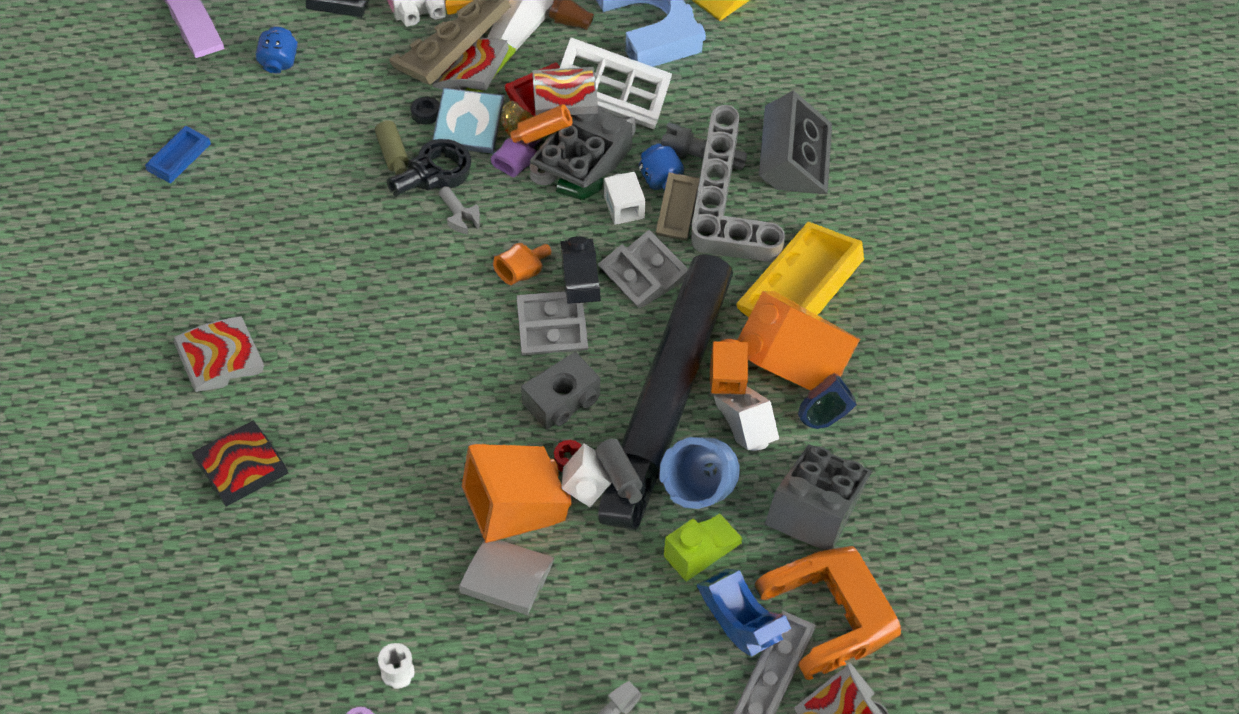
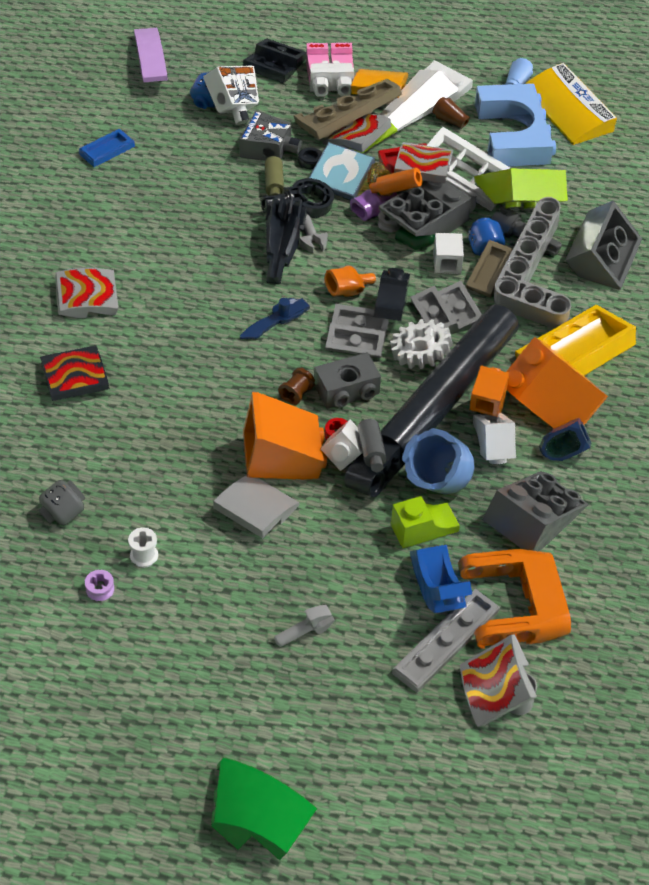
camera: 15 degrees right, 5 degrees down
(281, 635) = (61, 502): none -> dark grey head
(310, 46) = (233, 90): none -> white torso
(368, 97) = (267, 137): none -> dark grey torso
(426, 207) = (283, 228): none -> black piece
(458, 321) = (283, 312): none -> dark blue piece
(505, 412) = (296, 386): none -> reddish brown bush
(630, 322) = (421, 343): none -> white gear
(687, 96) = (523, 186): none -> lime slope

